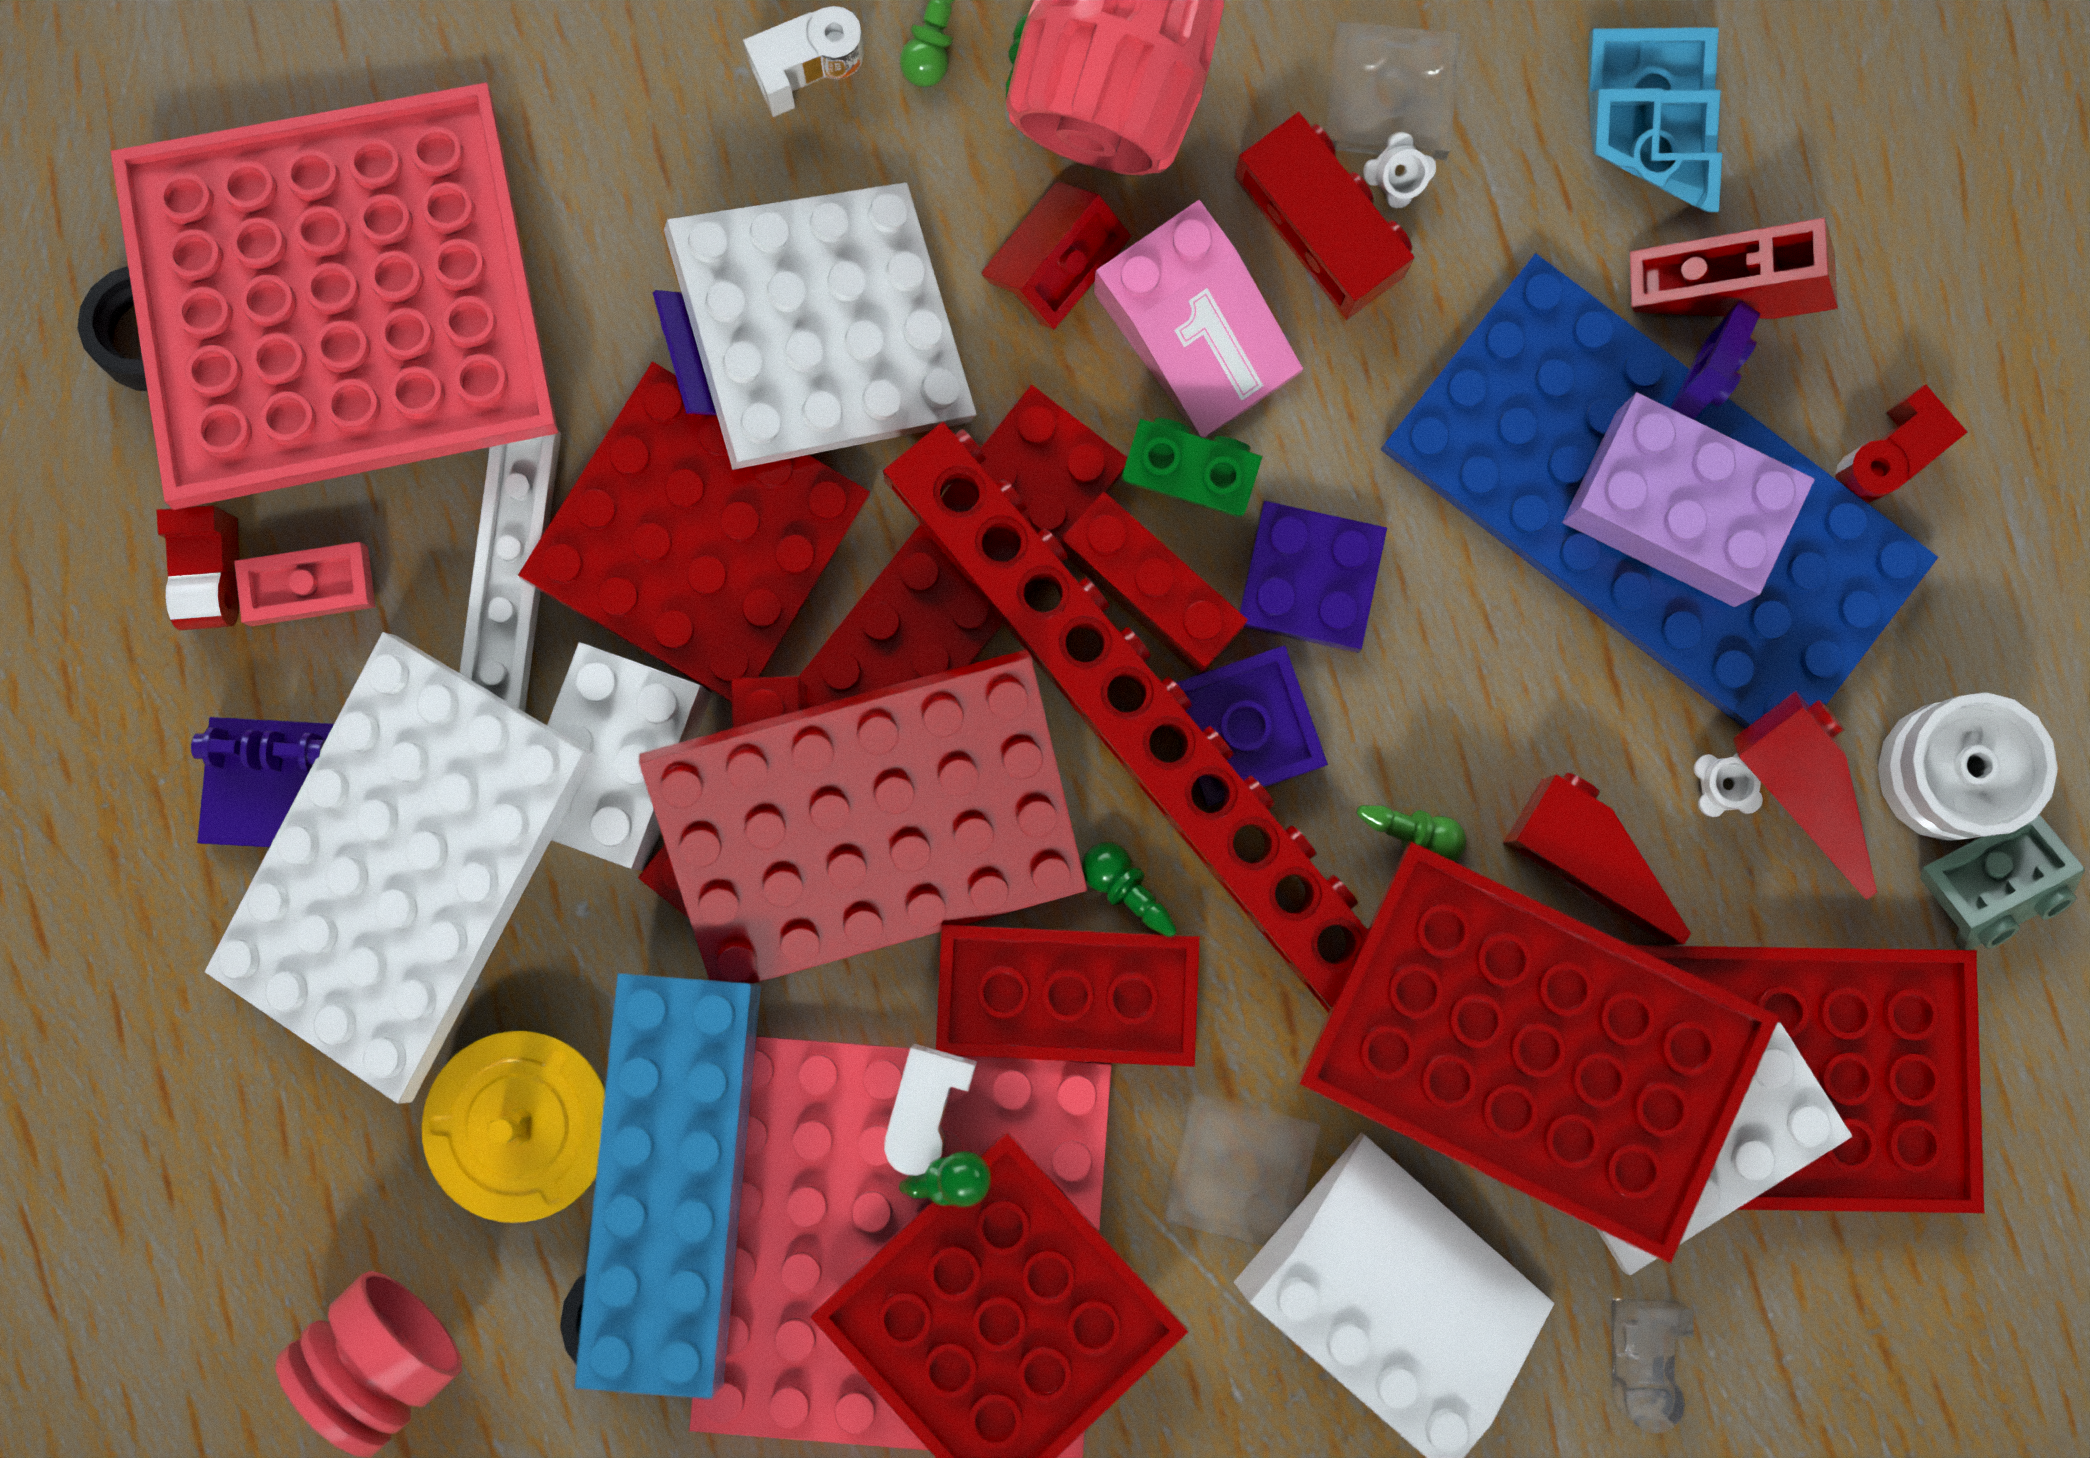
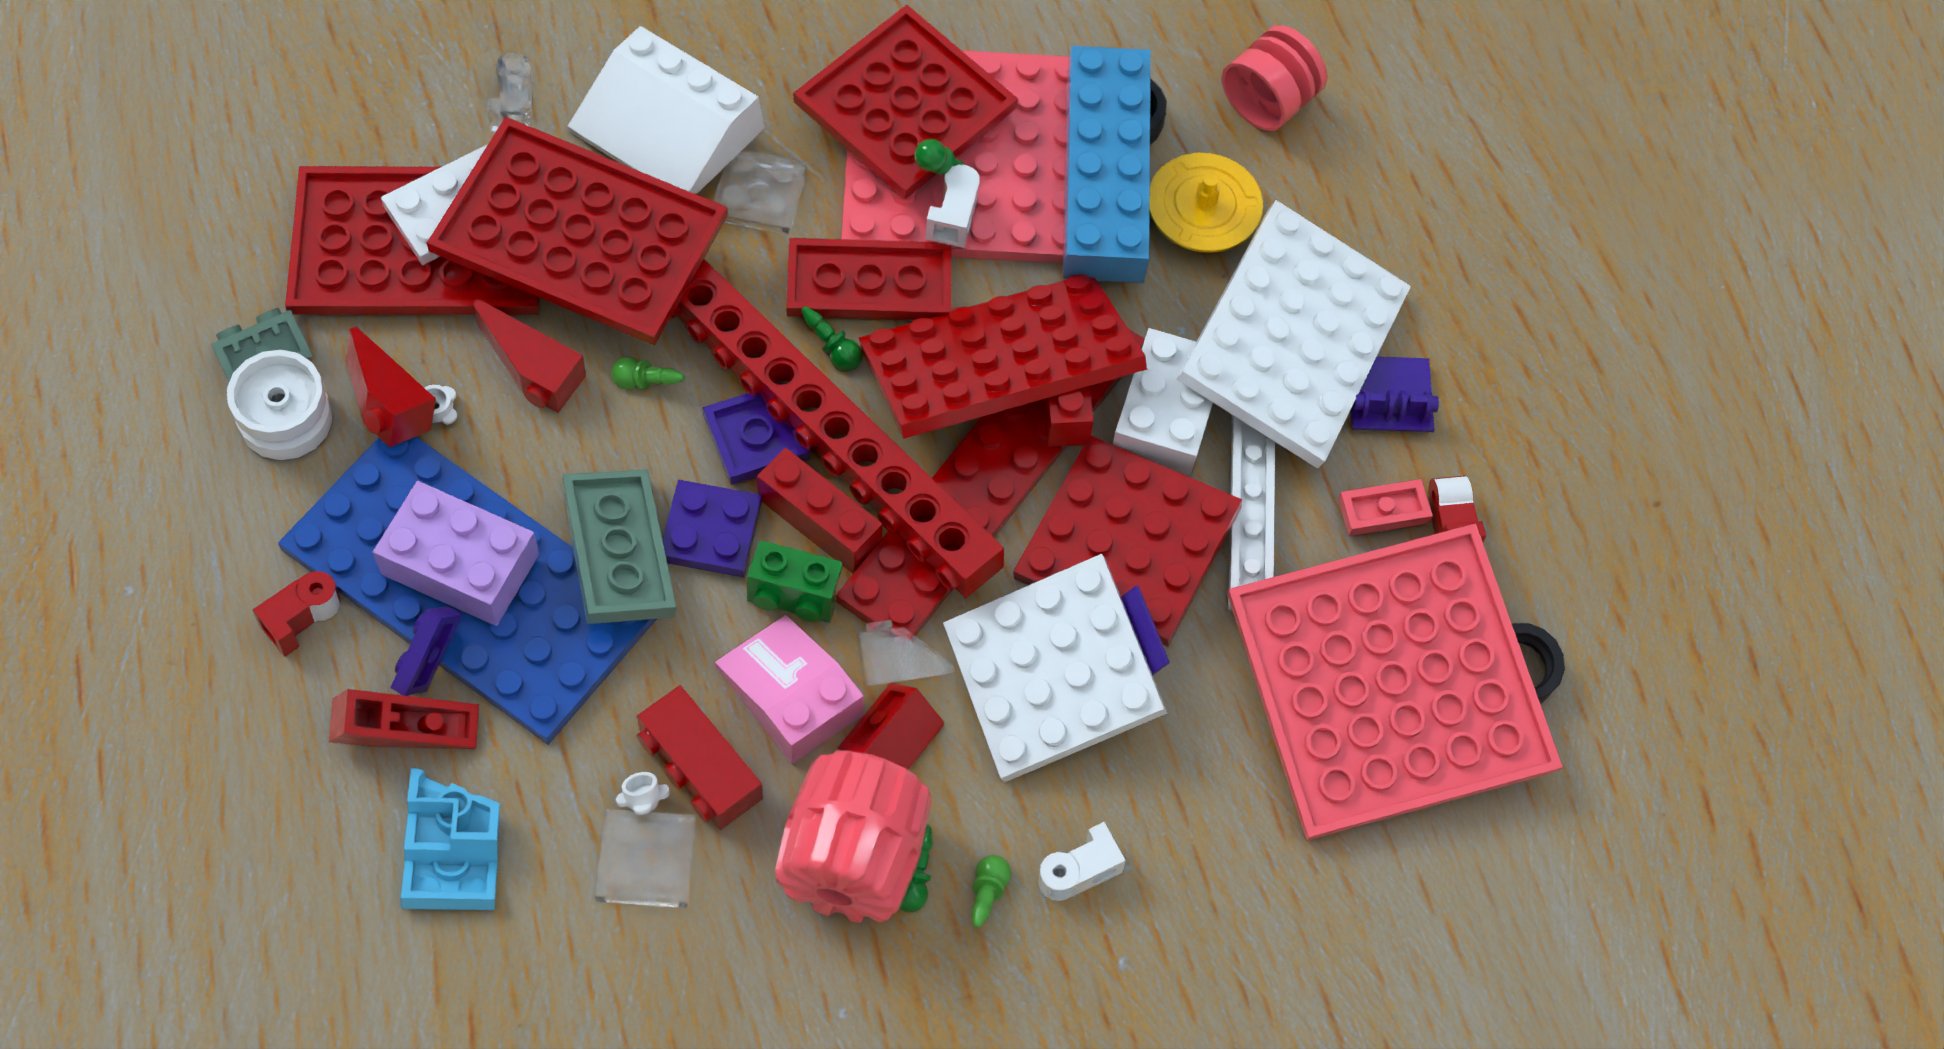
camera: 170 degrees right, 20 degrees down
(1039, 349) = (897, 655): none -> clear slope
(1450, 525) = (618, 546): none -> sand green plate

